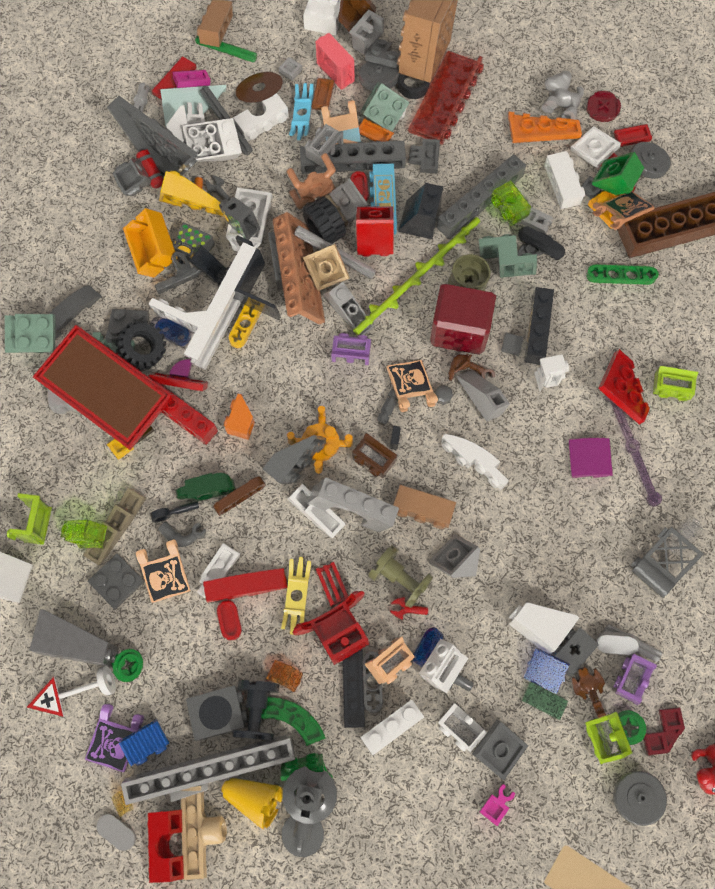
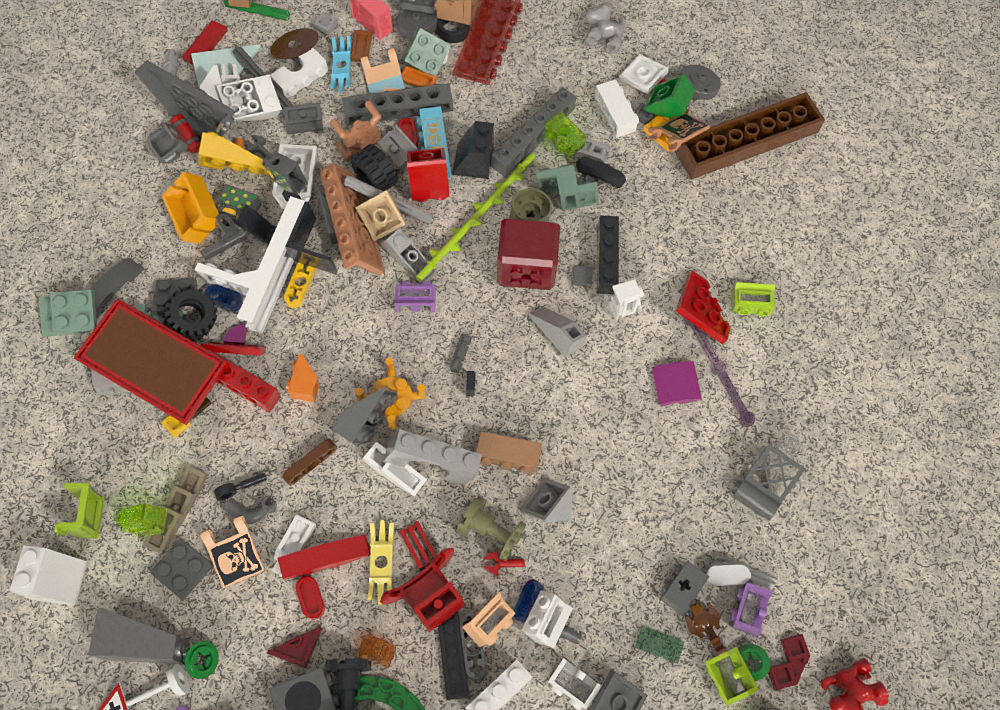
camera: 10 degrees left, 5 degrees down
(191, 78) = (223, 41): dark pink plate -> none
(206, 487) = (273, 456): dark green piece -> none
(214, 665) = (298, 649): none -> dark red tile
(261, 163) = (303, 118): none -> dark grey plate
(323, 143) = (366, 90): light grey window -> none
(374, 456) = (450, 405): reddish brown window -> none
(409, 381) = (481, 323): flag -> none
(426, 155) = (473, 97): dark grey hinge -> none
(444, 394) = (516, 334): dark grey tile -> none
(462, 362) = (533, 298): reddish brown piece -> none
(469, 453) = (551, 392): white slope -> none
(534, 129) = (577, 62): orange wing -> none
(542, 625) = (647, 563): white slope -> none
(546, 671) = (657, 611): clear blue piece -> none
(603, 106) = (647, 34): dark red tile -> none
(621, 271) = (685, 193): green beam -> none
(633, 135) = (679, 59): red tile -> none

